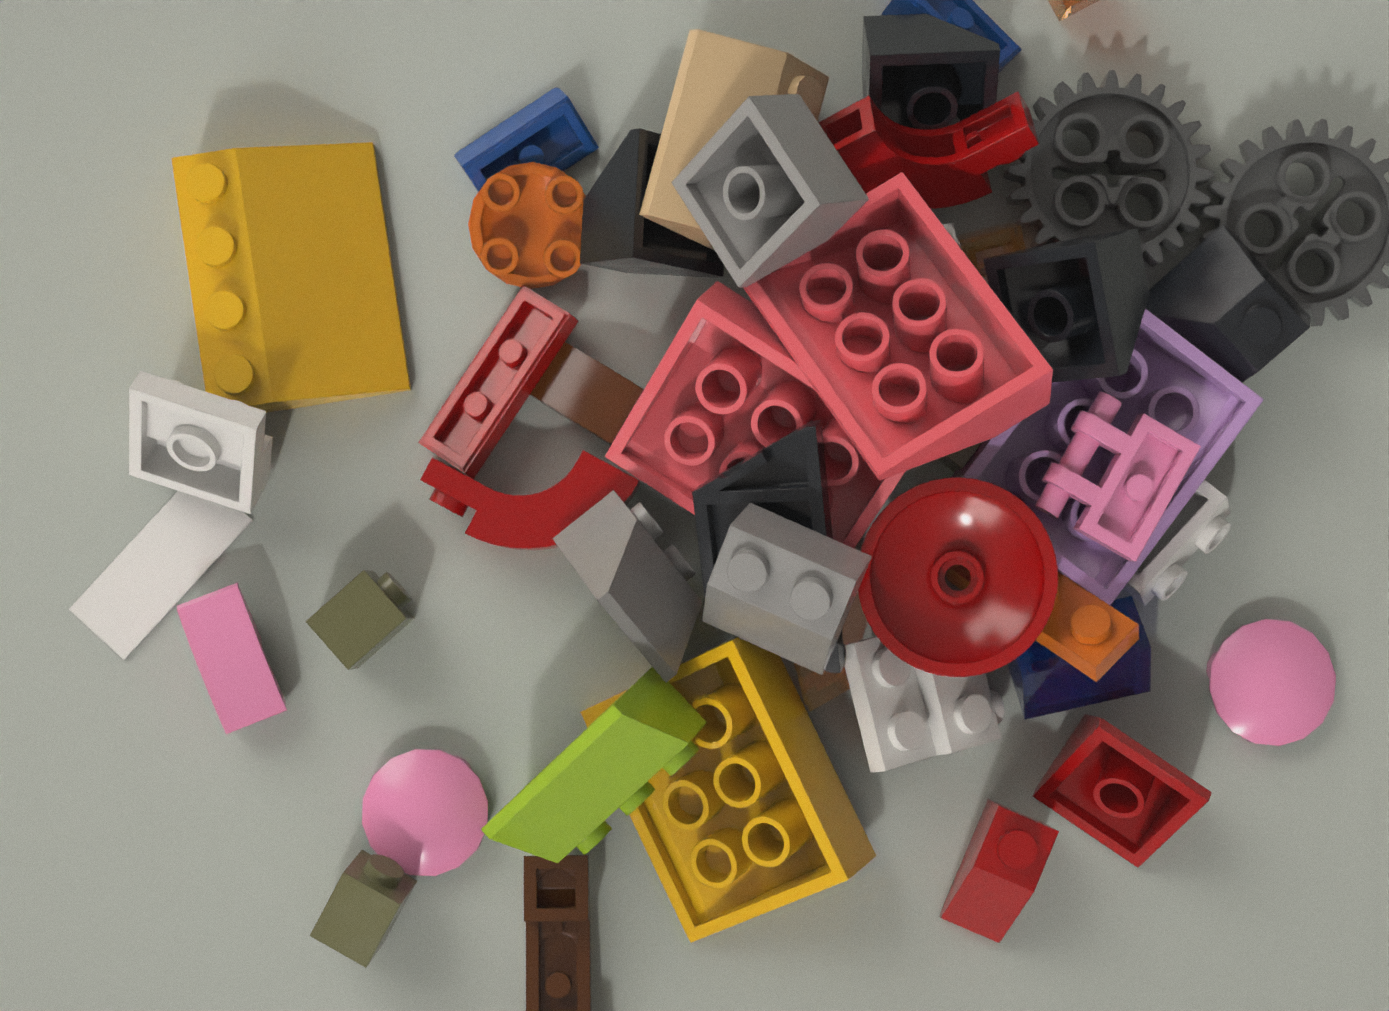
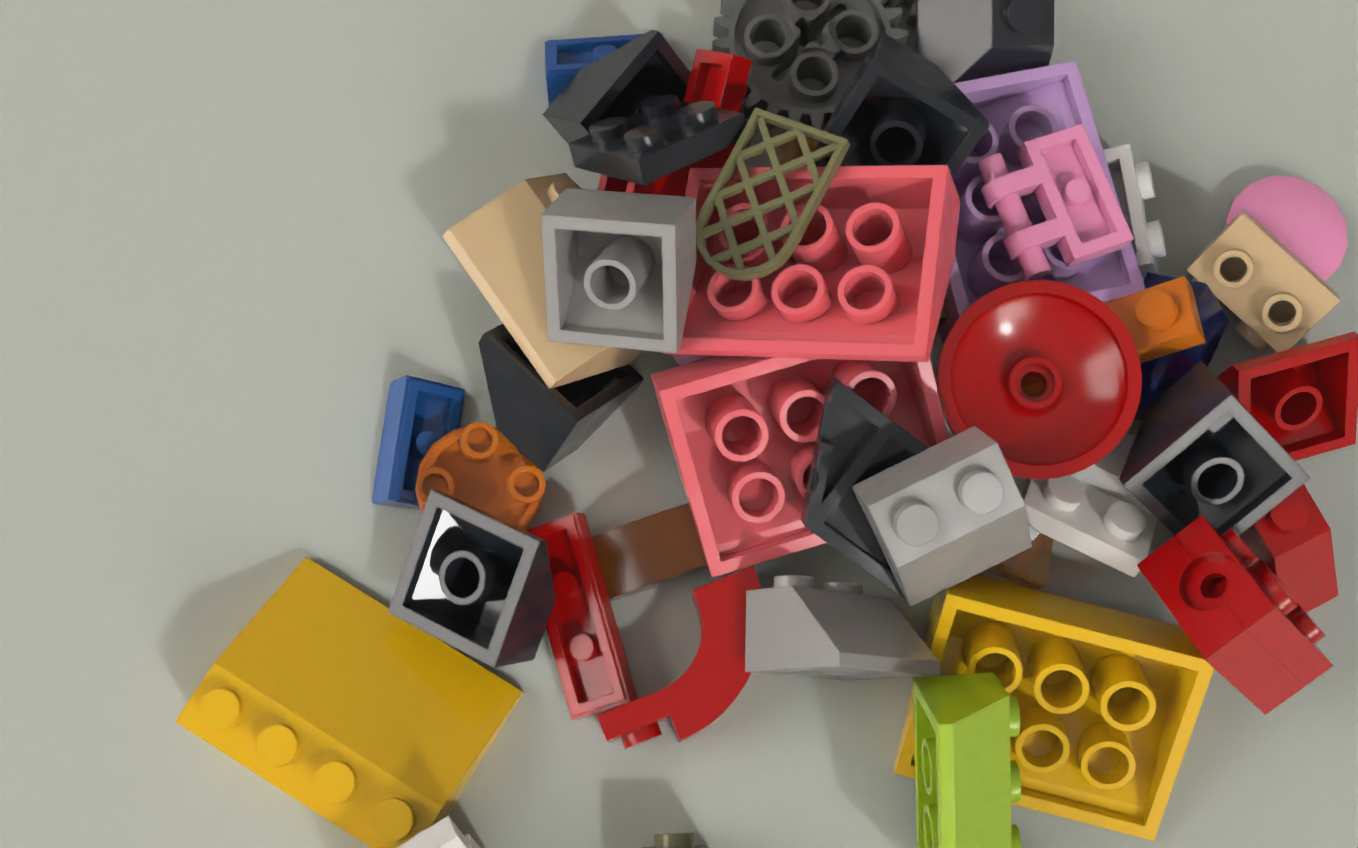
camera: 50 degrees left, 10 degrees down
(451, 286) = (476, 583): none -> black slope
(898, 867) = (1237, 613): none -> red brick
(904, 128) = (657, 139): none -> black plate
(916, 294) = (837, 148): none -> olive window
(1001, 757) = (1207, 458): none -> black slope
(1202, 693) = (1263, 284): none -> tan brick

